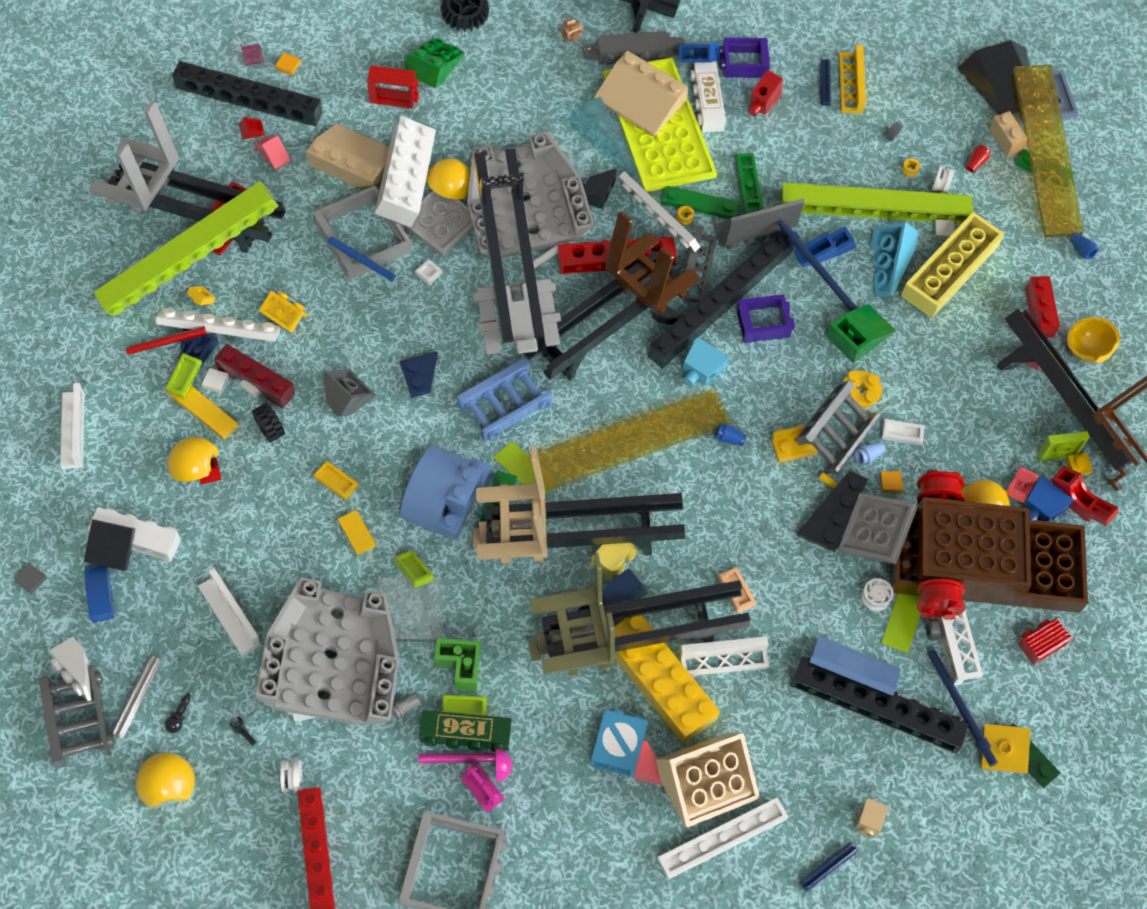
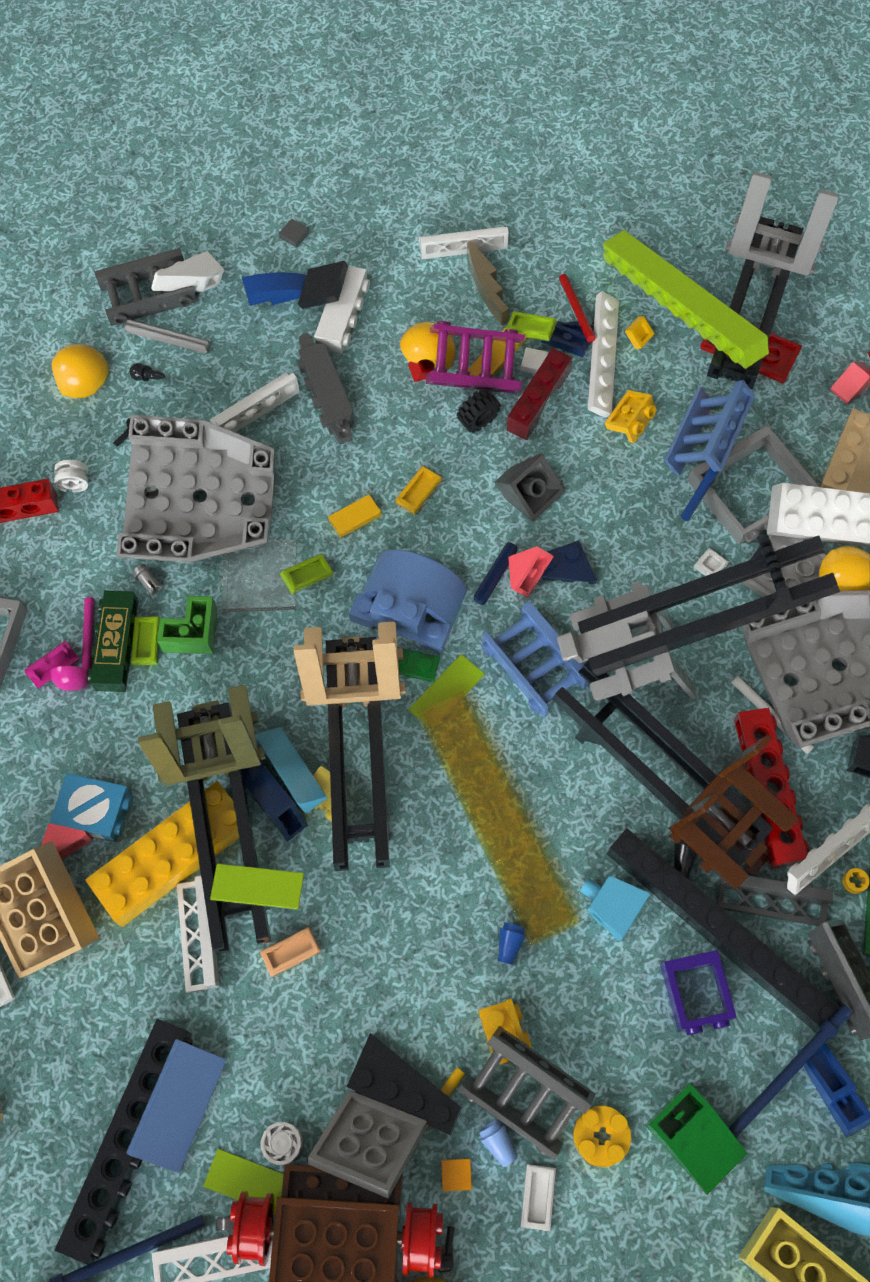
camera: 95 degrees right, 5 degrees up
(117, 412) = (485, 279): none -> dark tan slope
(221, 549) = (326, 387): none -> dark grey hinge
(238, 415) = (462, 377): none -> magenta fence
(325, 240) = (724, 434): none -> medium blue fence
(423, 425) = (495, 574): none -> dark blue axle
(425, 398) = (527, 569): none -> coral slope
(611, 568) = (291, 768): none -> medium azure slope
(701, 588) = (257, 886): none -> lime piece

